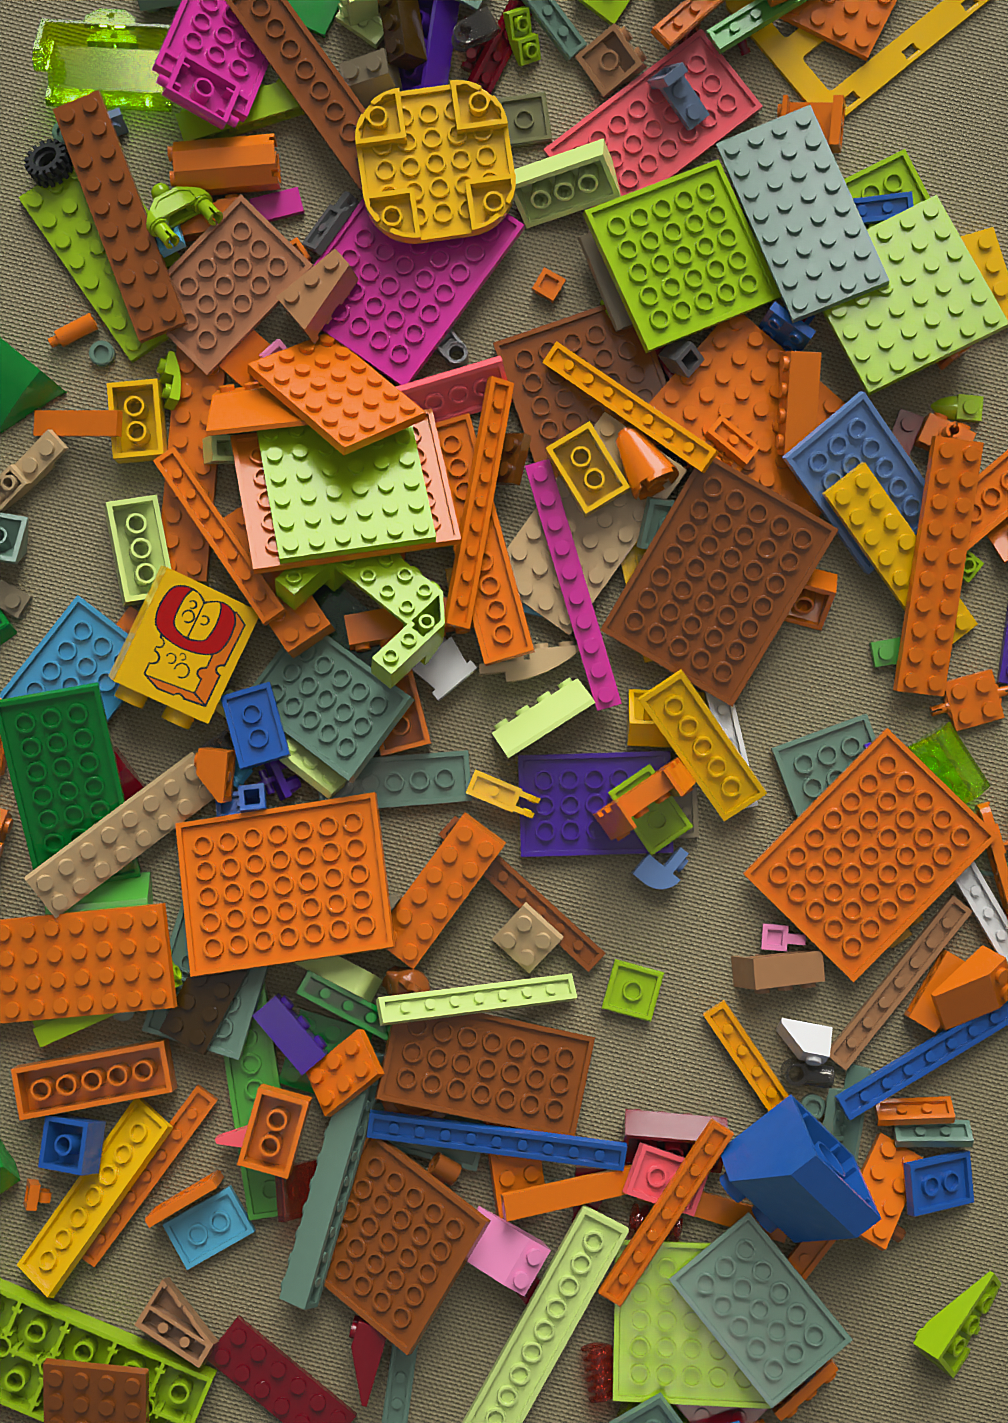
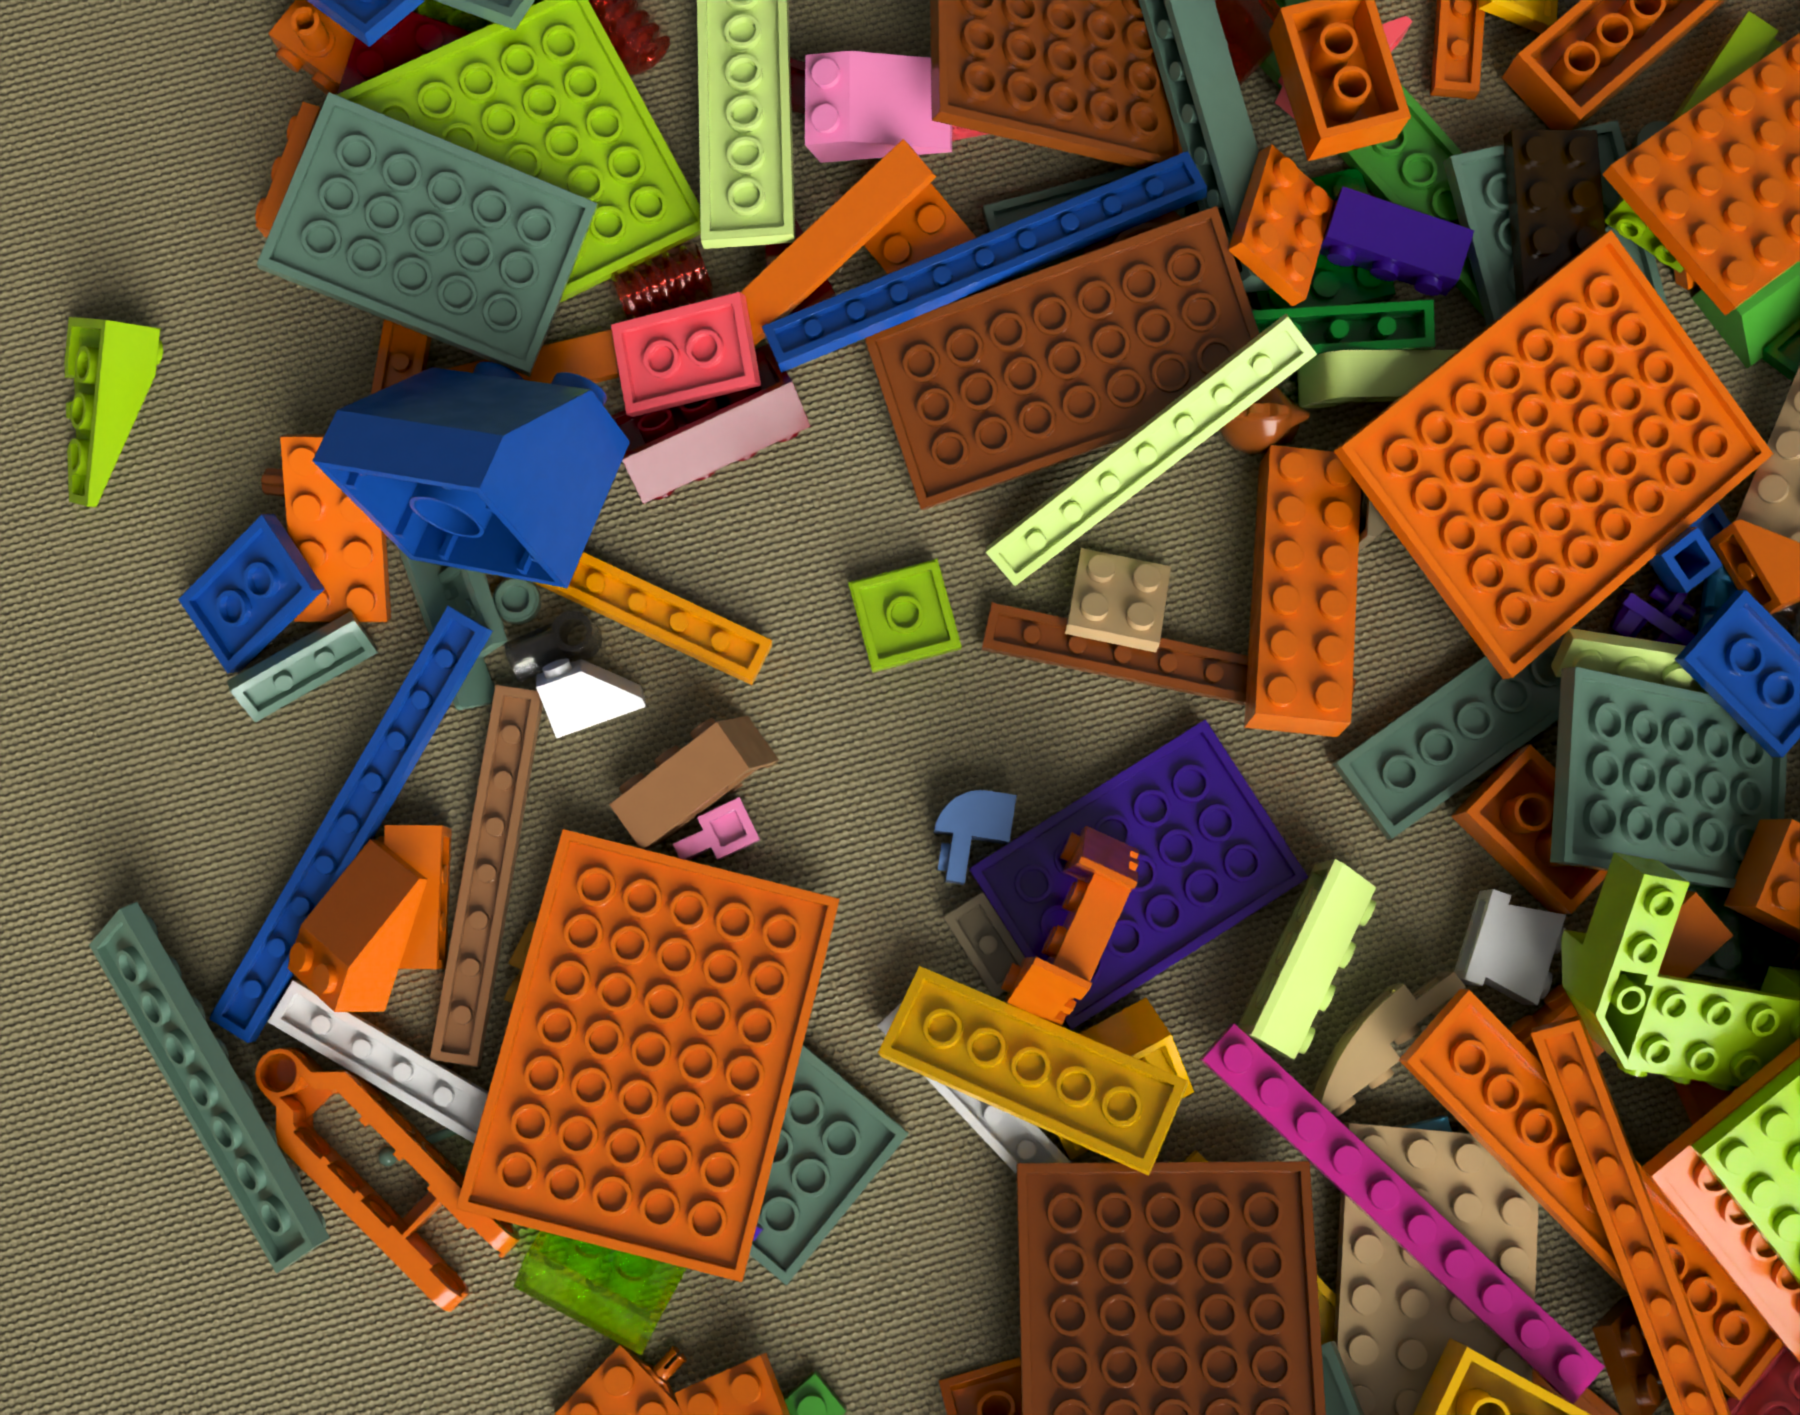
camera: 150 degrees right, 5 degrees down
(444, 1168) = (1037, 174): dark orange axle -> none
(499, 793) = (1303, 798): yellow hinge -> none
(662, 822) = (1024, 902): lime tile -> none
(665, 1212) = (659, 304): orange tile -> none
(914, 1111) = (349, 685): orange plate -> none

